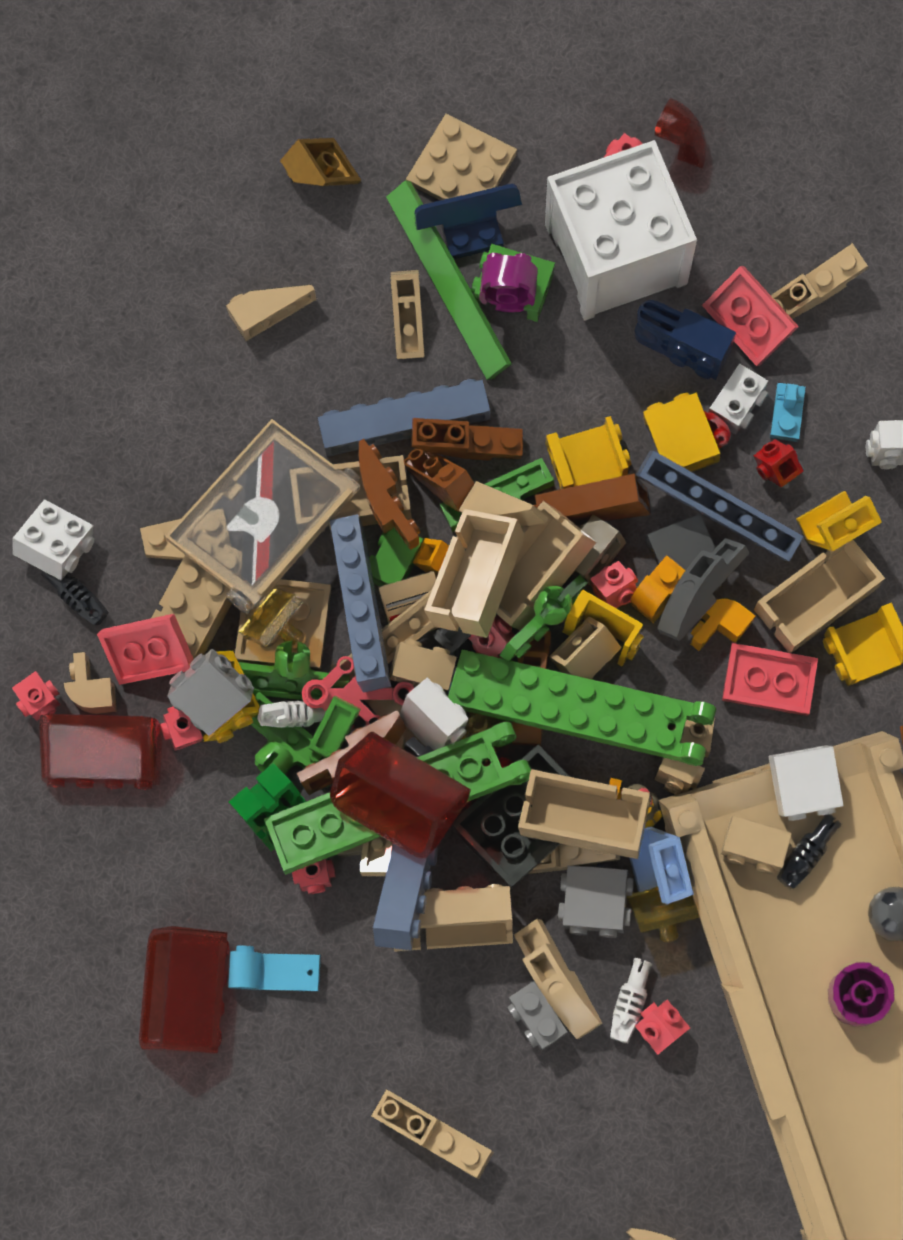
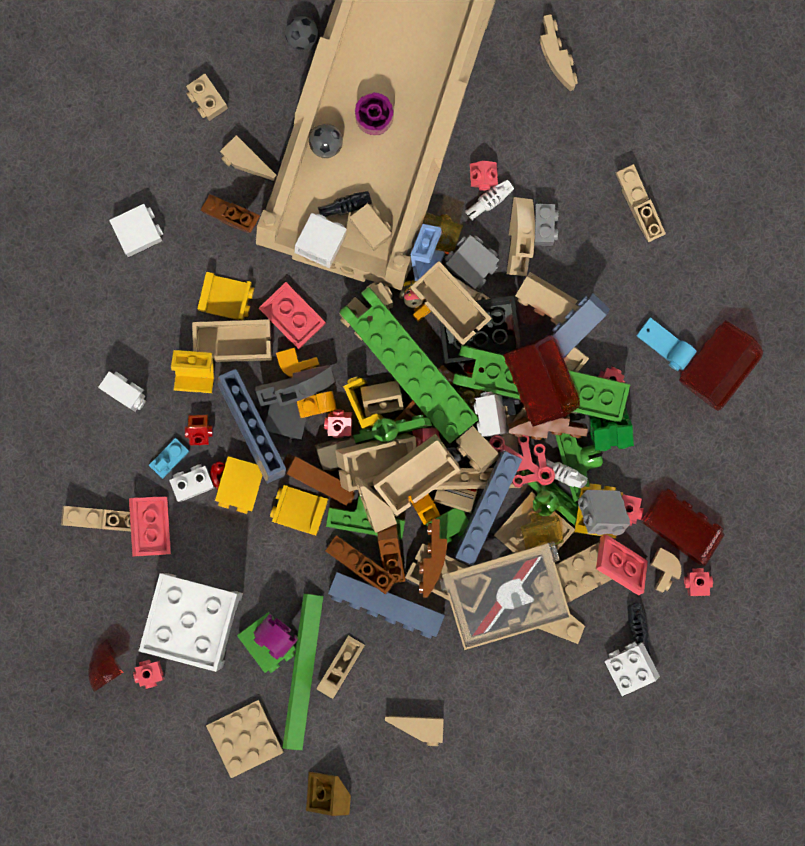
camera: 150 degrees left, 10 degrees up
(334, 727) = (548, 449): bright green tile -> none
(469, 219) = (266, 696): dark blue plate -> none
(684, 337) = (197, 536): dark blue brick -> none

